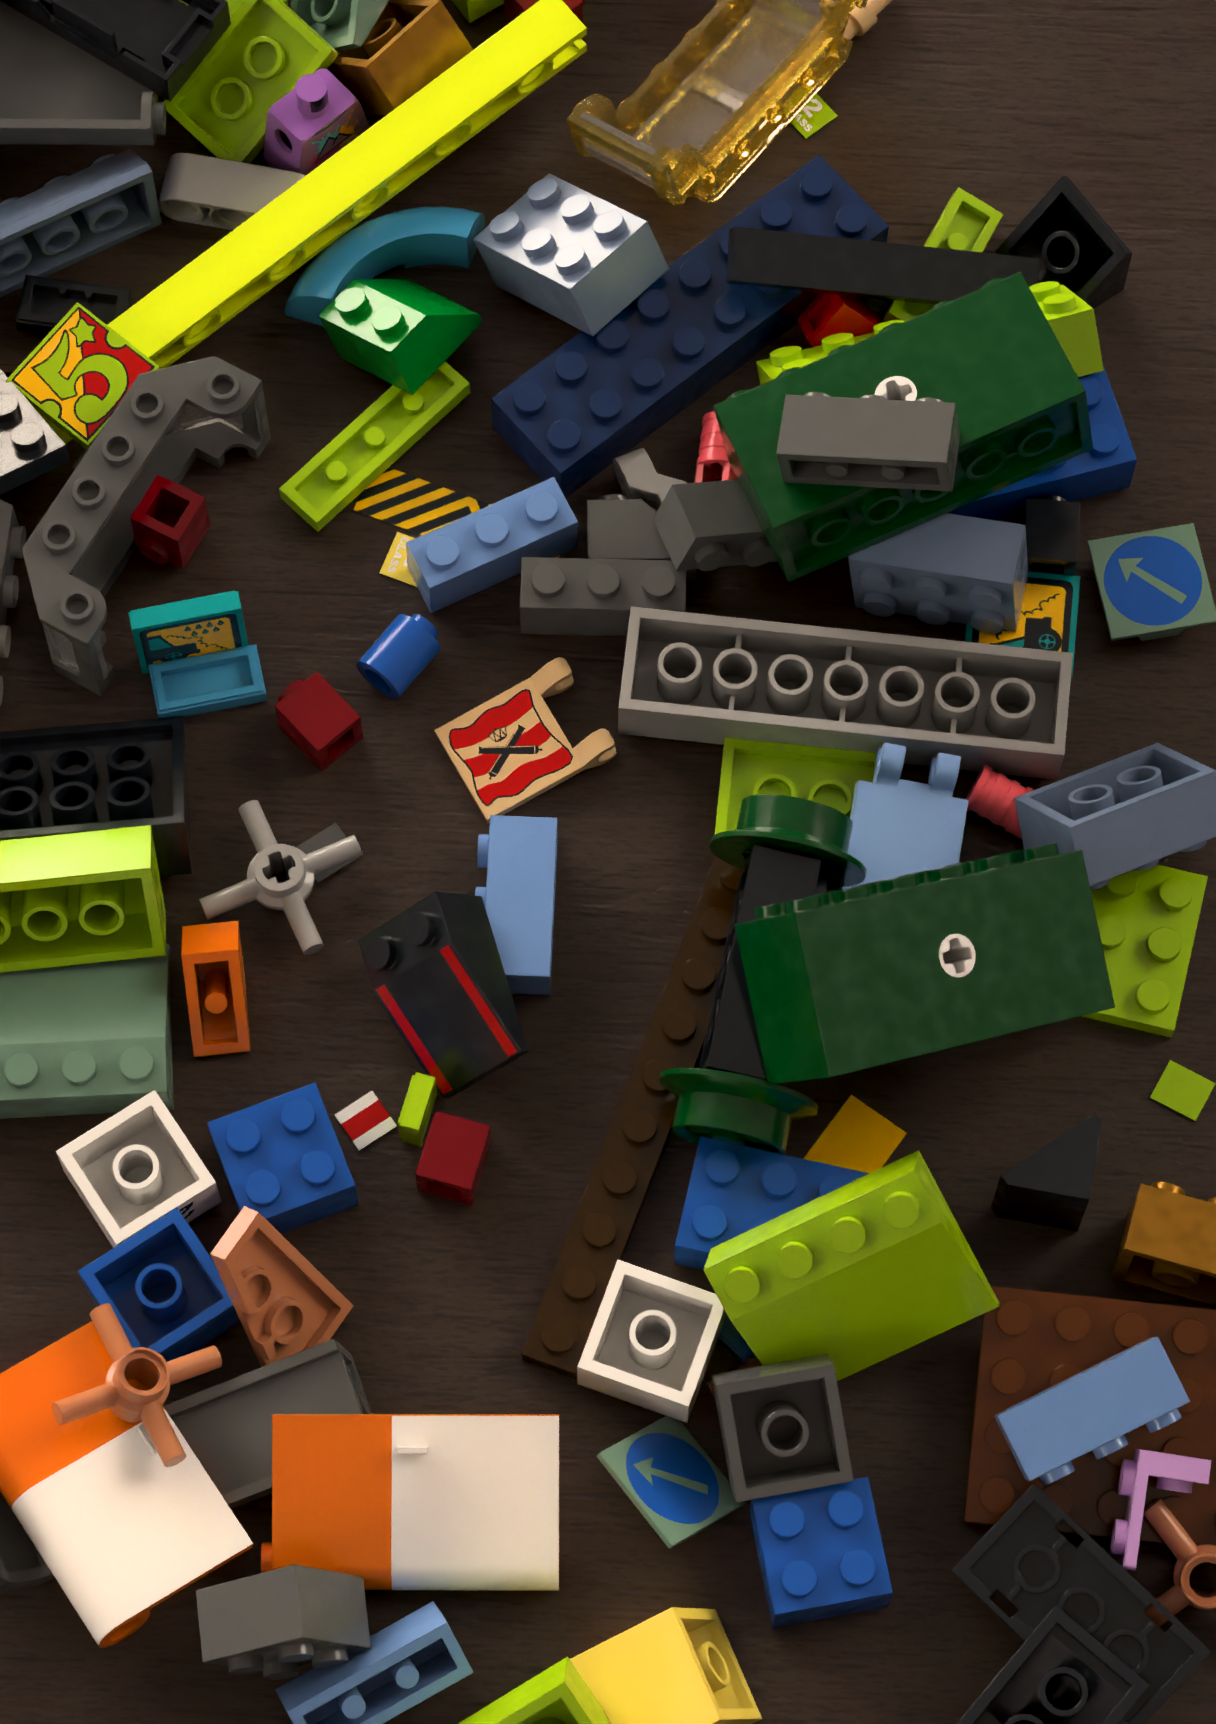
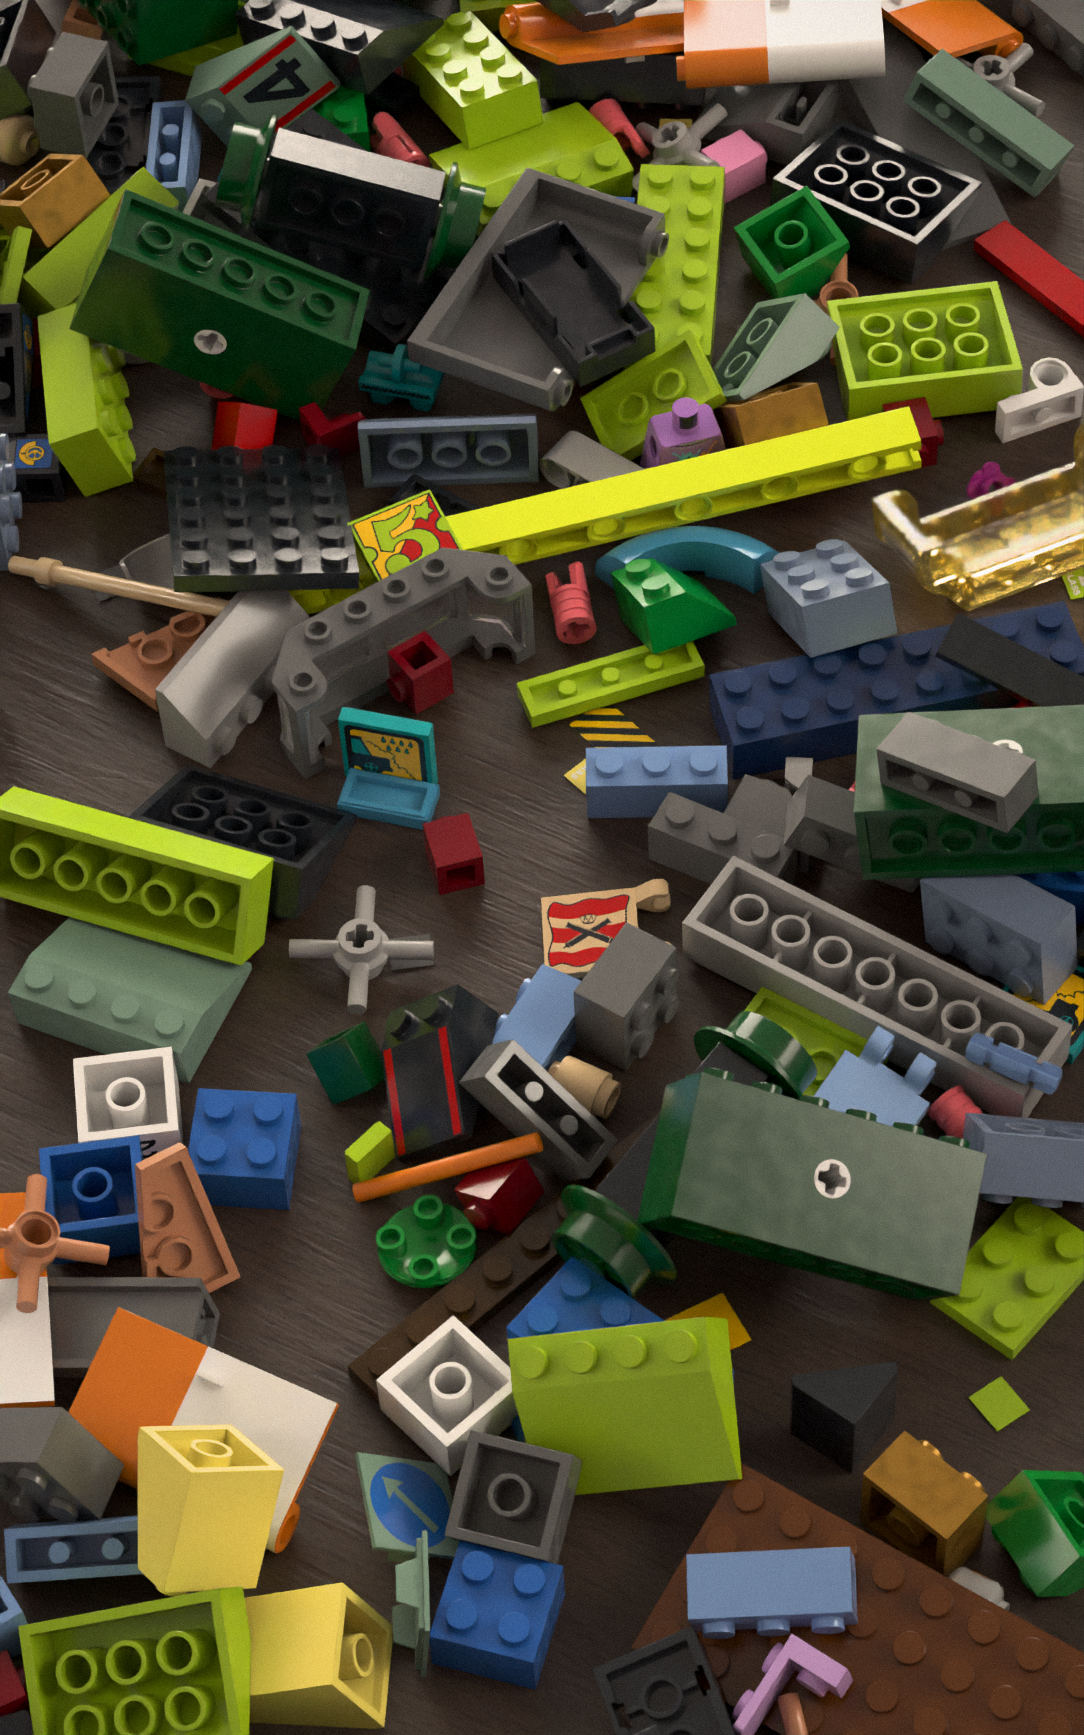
camera: 30 degrees right, 15 degrees down
(215, 988) = (266, 1006): orange slope -> none
(285, 367) = (571, 606): none -> coral hinge
(337, 1014) = (347, 1063): none -> dark green panel
(365, 1120) = (328, 1151): sticker -> none
(399, 654) = (542, 831): blue brick -> none
(453, 1158) = (375, 1198): dark red panel -> none
(485, 1592) = (203, 1507): none -> light yellow slope
(530, 1181) = (426, 1243): none -> green dish
(537, 1075) = (448, 1167): none -> orange bar
(577, 1092) = (499, 1194): none -> dark red brick
(582, 990) = (532, 1101): none -> dark grey brick
(597, 934) = (587, 1084): none -> tan brick
(601, 815) = (626, 997): none -> dark grey brick
(660, 36) = (988, 475): none -> magenta plate
(740, 1588) = (412, 1616): none -> sand green piece
(1040, 725) = (1013, 1063): none -> medium blue axle

